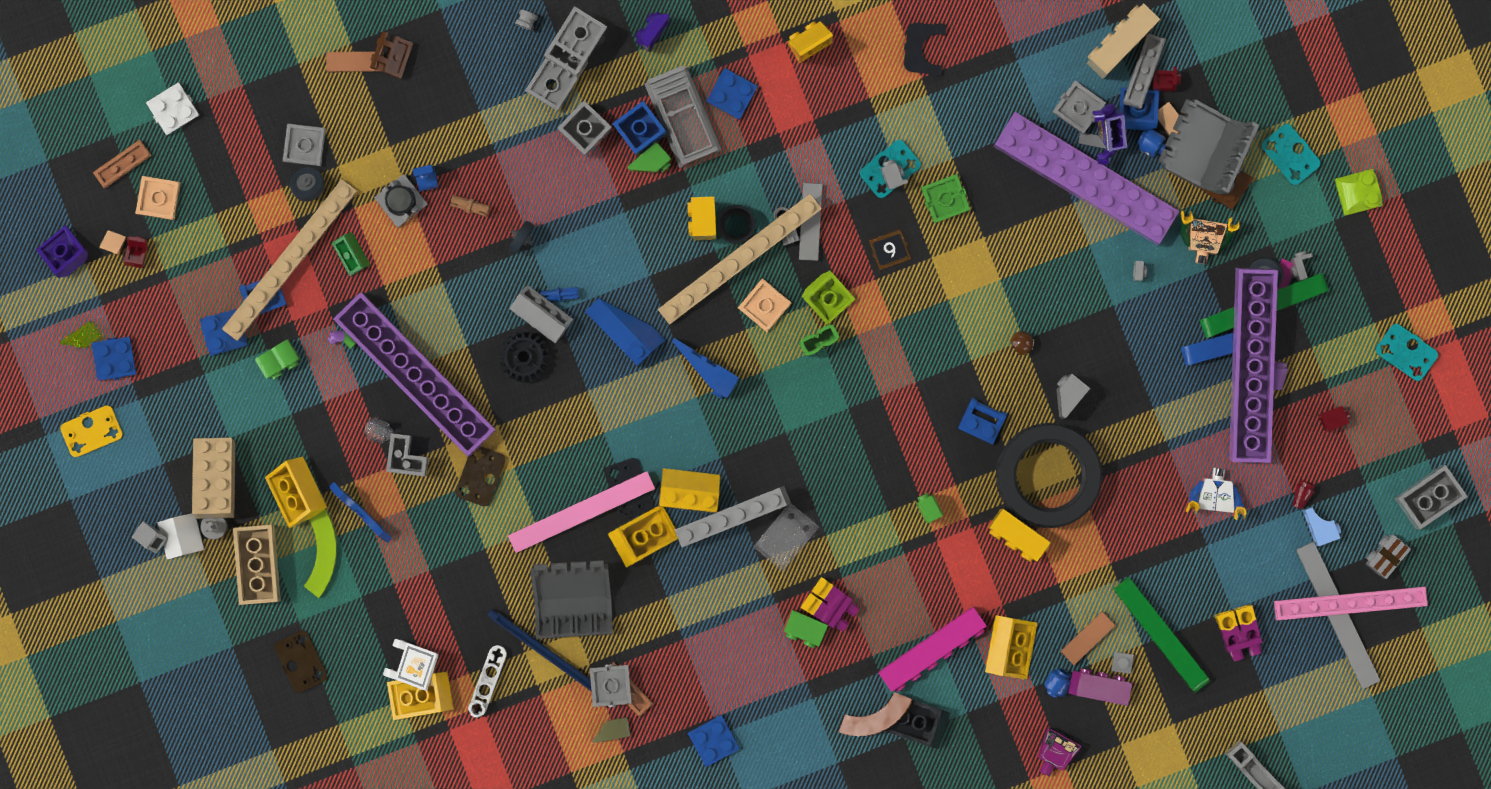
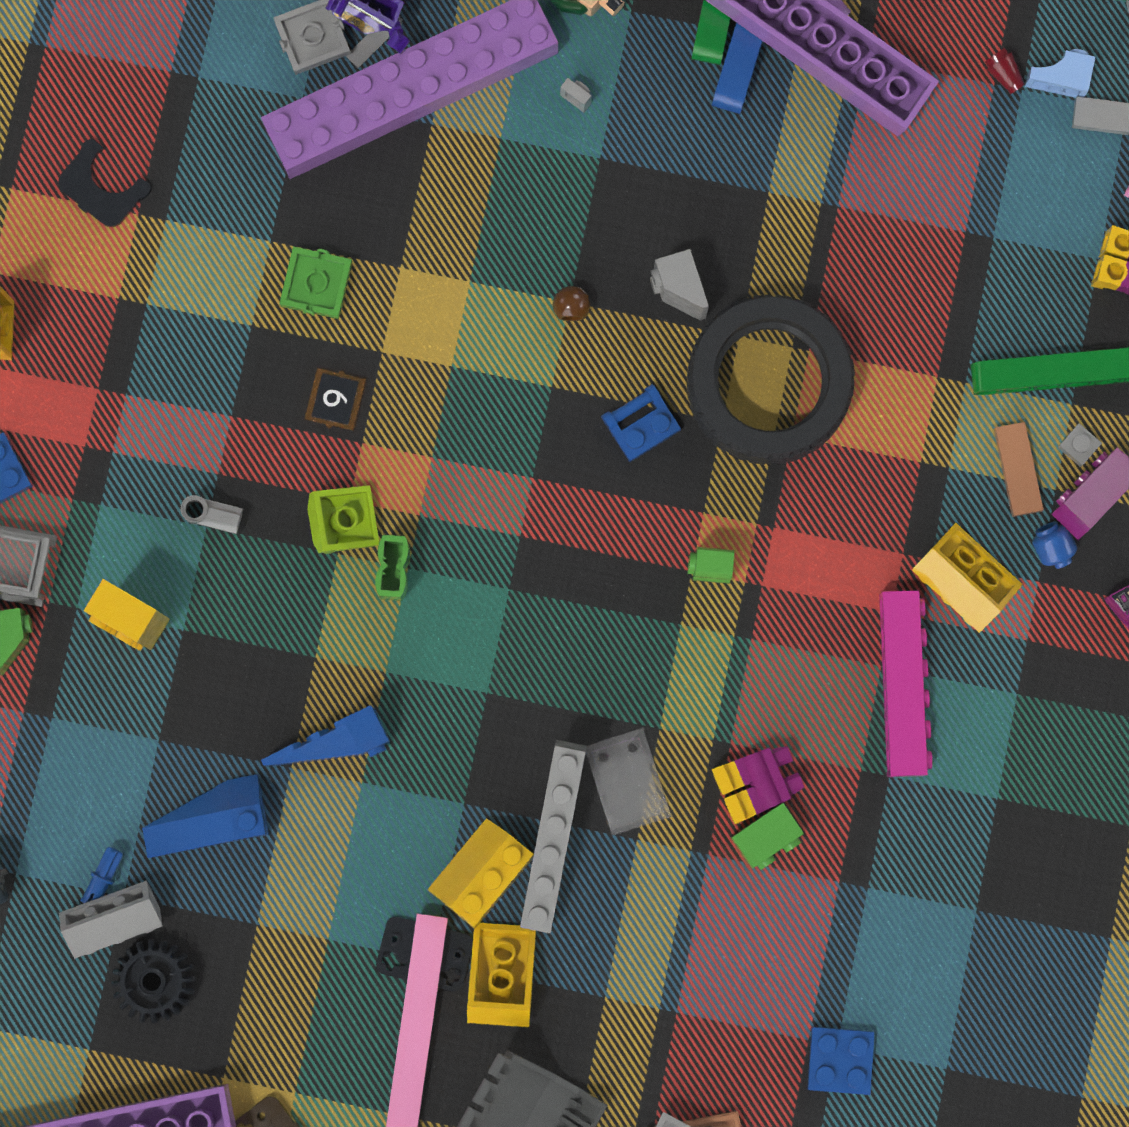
camera: 60 degrees left, 5 degrees down
(739, 210) = (148, 564): black piece -> none
(739, 258) = (214, 603): tan plate -> none
(764, 305) = (299, 611): light nougat tile -> none
(811, 228) = (229, 479): light grey tile -> none
(873, 170) = (237, 330): teal axle -> none
(878, 721) = (955, 821): tile -> none
(892, 174) = (238, 330): light grey brick -> none
(922, 724) = (986, 769): black slope -> none
(1018, 536) = (825, 471): yellow brick -> none
(1216, 495) = (937, 180): torso -> none

